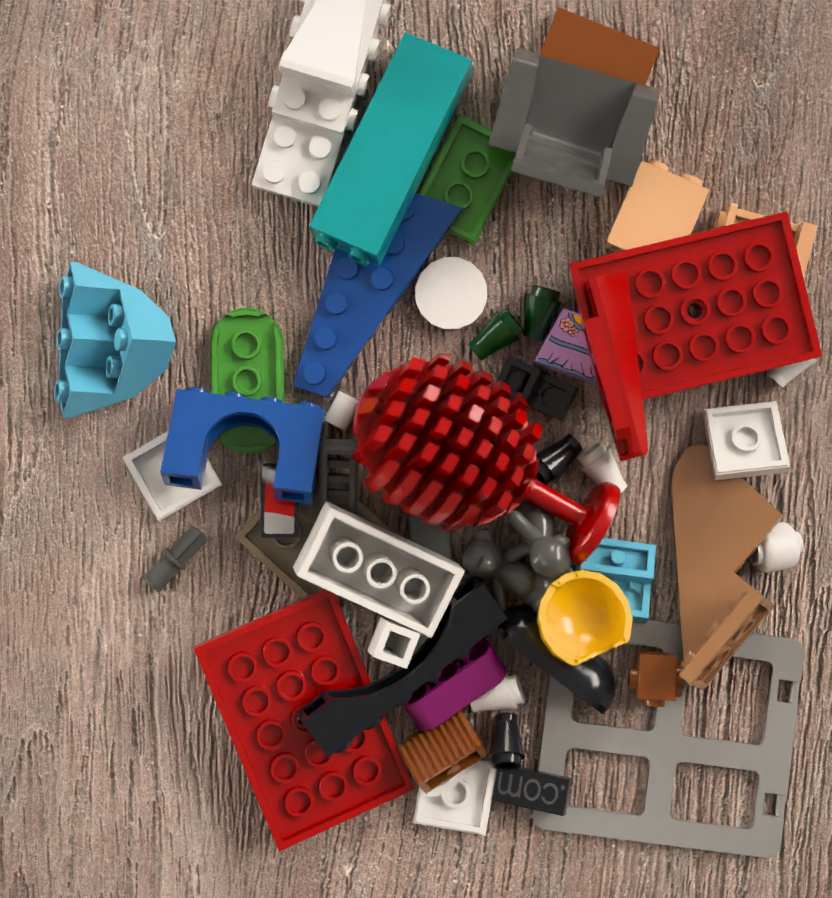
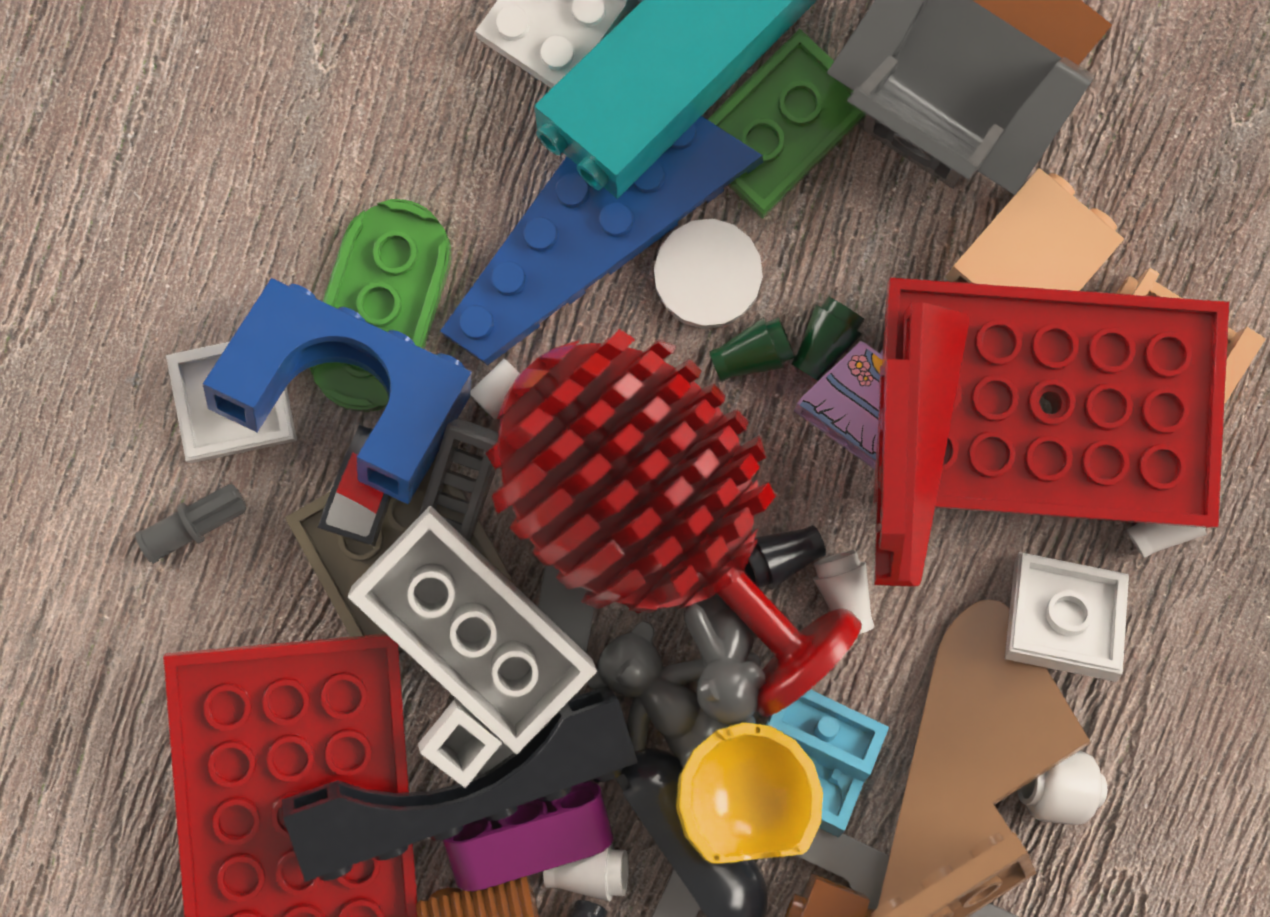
camera: 20 degrees right, 5 degrees down
(108, 341) = (203, 186): medium azure brick -> none
(538, 389) = (791, 450): black slope -> none

